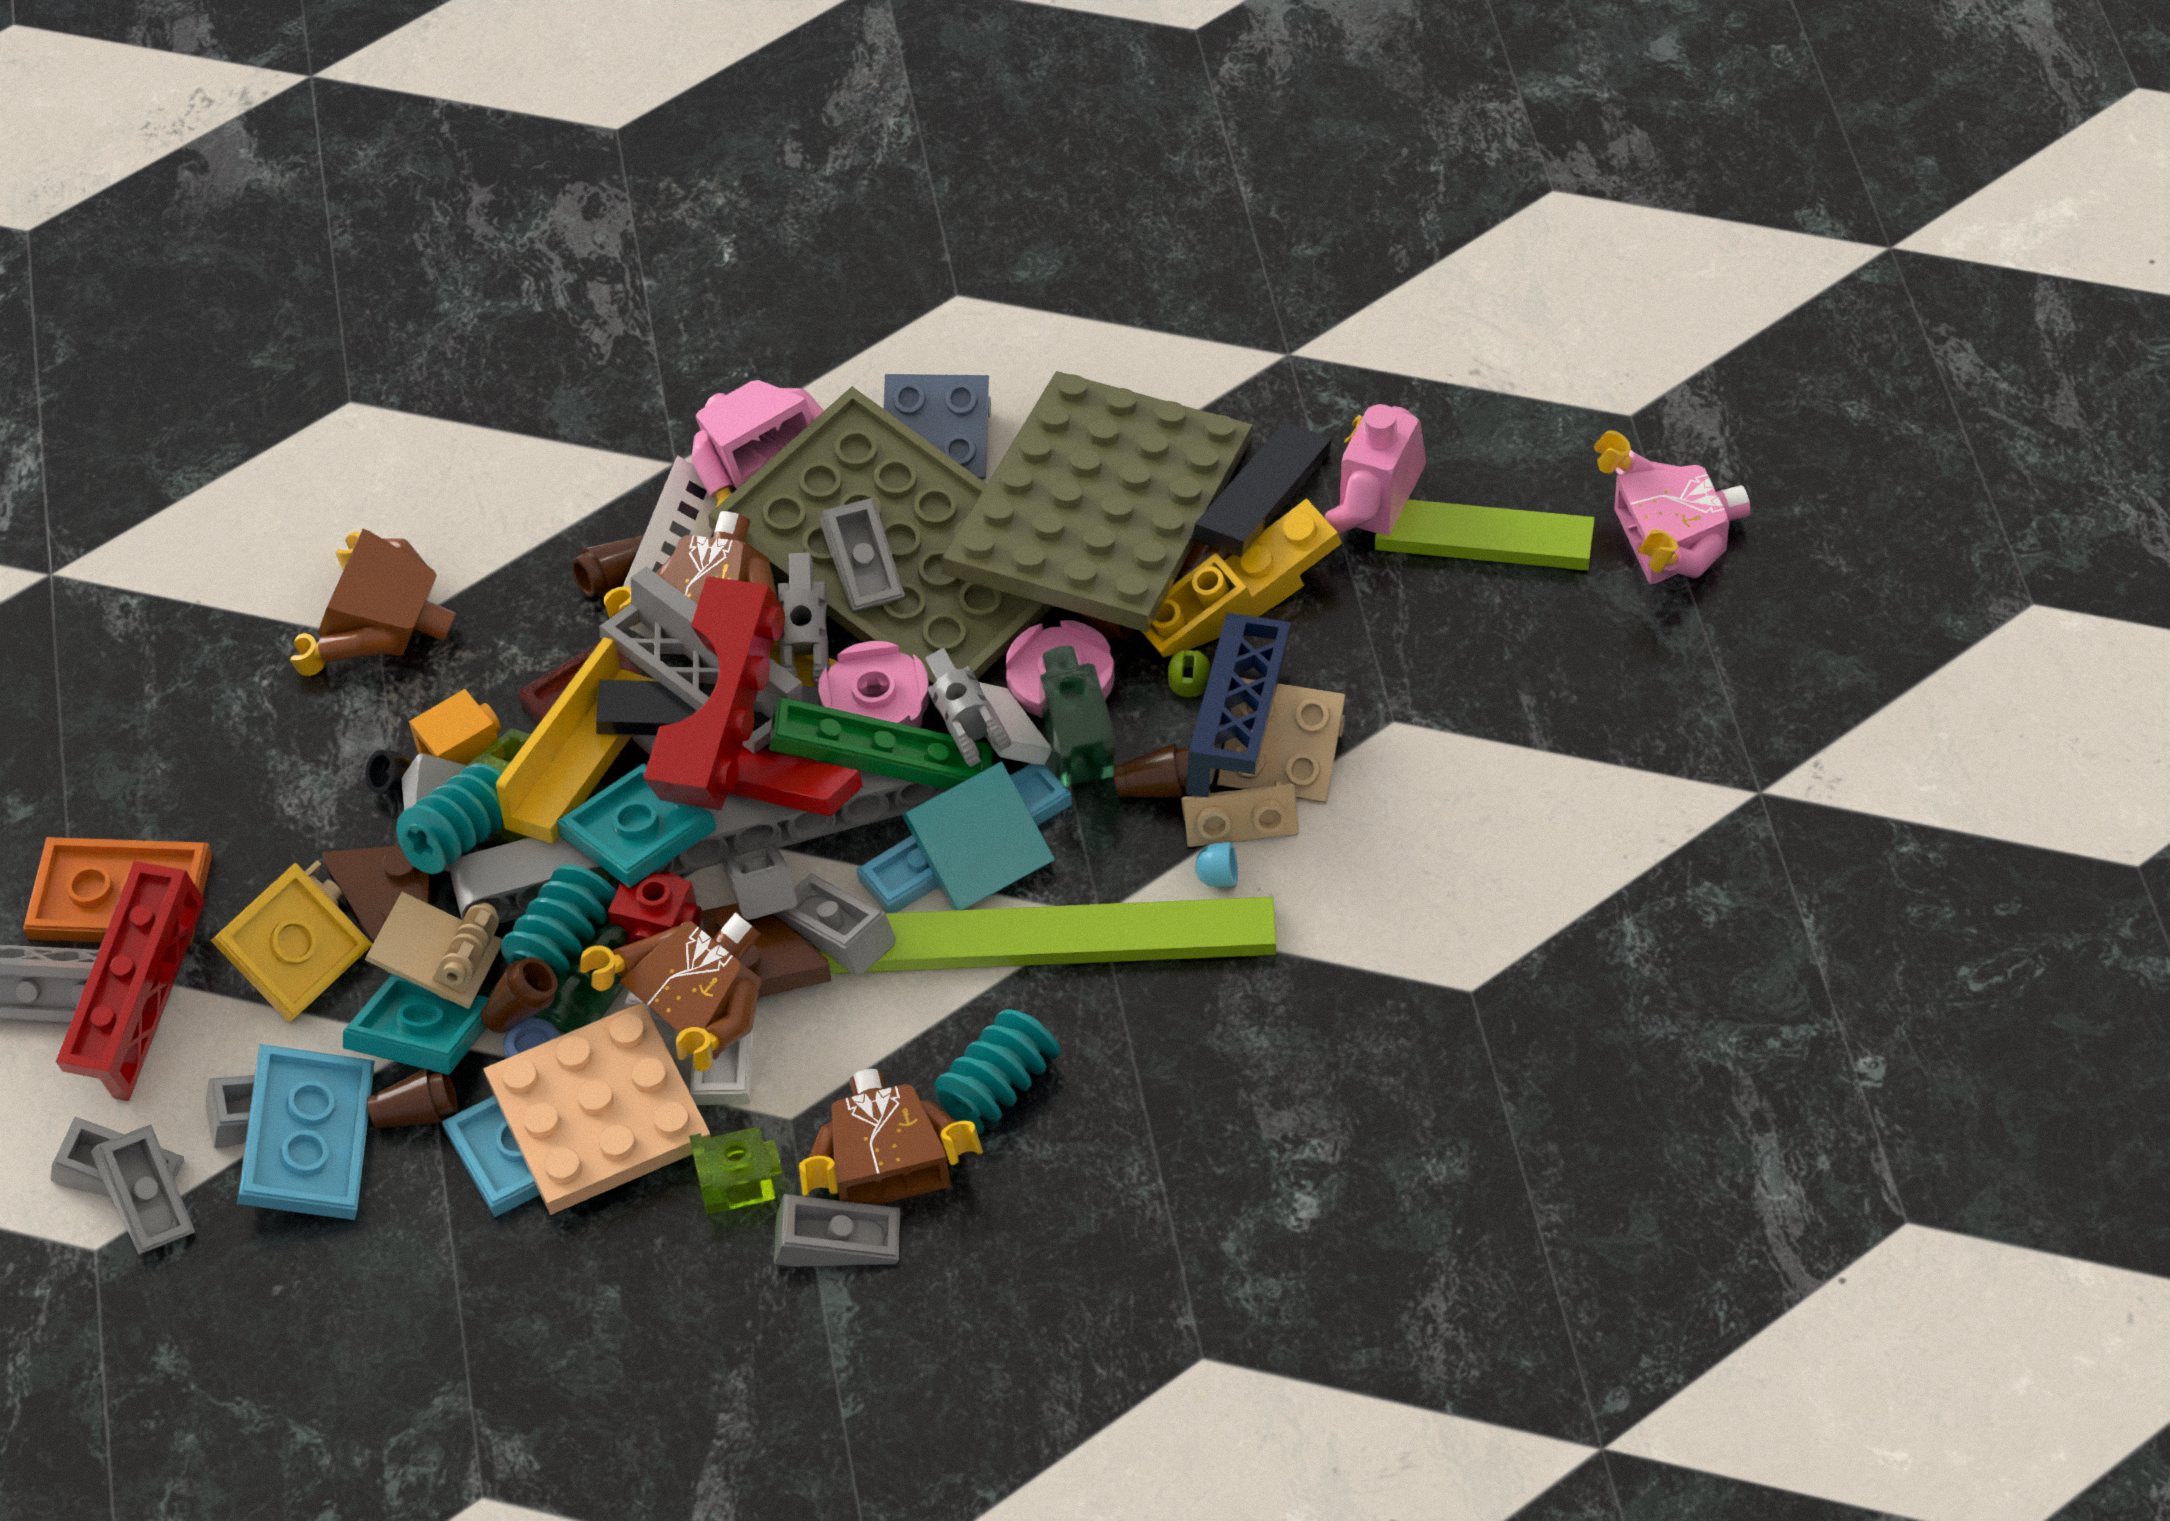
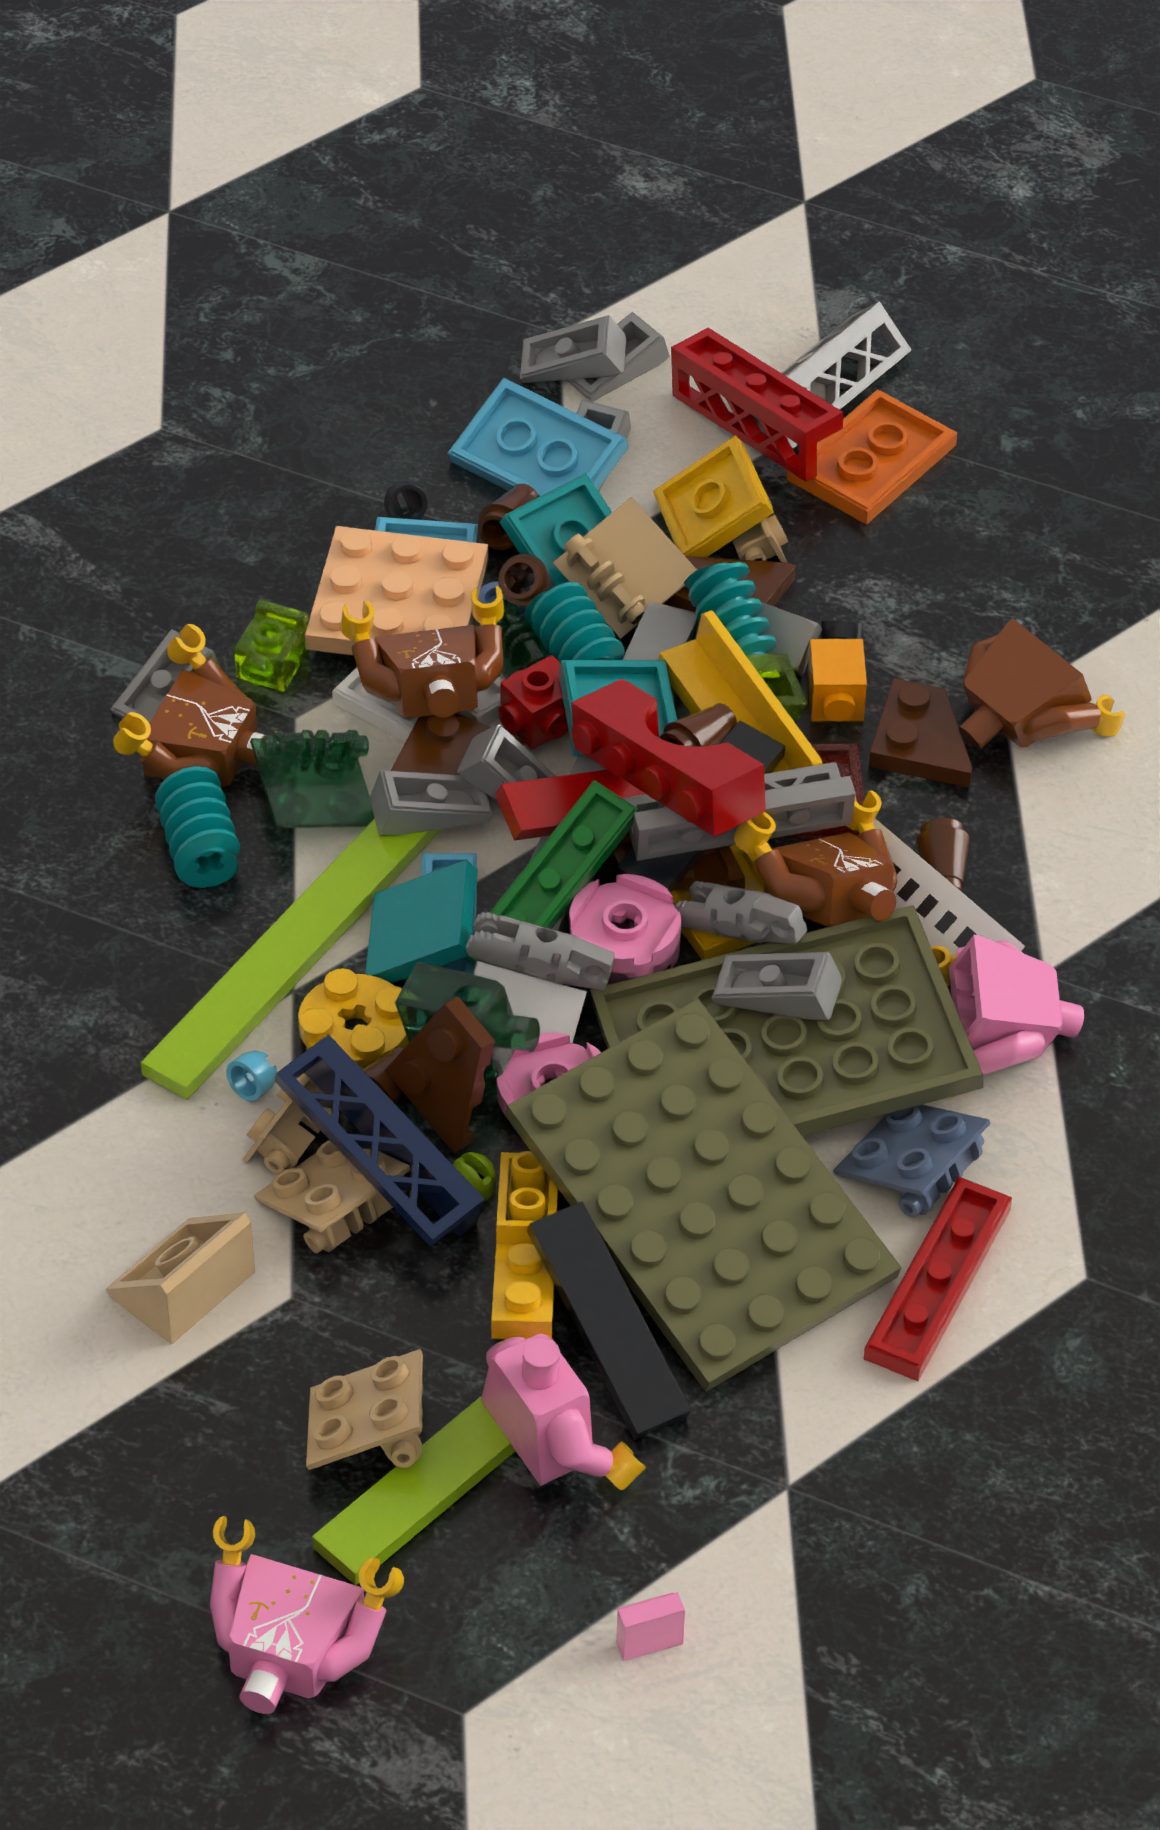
camera: 120 degrees right, 5 degrees down
(456, 1197) = (413, 496): none -> black hinge
(471, 658) = (920, 735): none -> reddish brown wing
(629, 737) = (701, 728): none -> reddish brown cone
(872, 1020) = (314, 778): none -> clear green hinge
(1032, 362) = (937, 1279): none -> red tile
(1101, 813) = (348, 997): none -> yellow plate
(1135, 697) = (445, 1071): none -> reddish brown wing
(1445, 771) = (187, 1273): none -> tan slope
(1467, 580) = (368, 1411): none -> tan hinge
(1481, 338) = (650, 1626): none -> bright pink tile

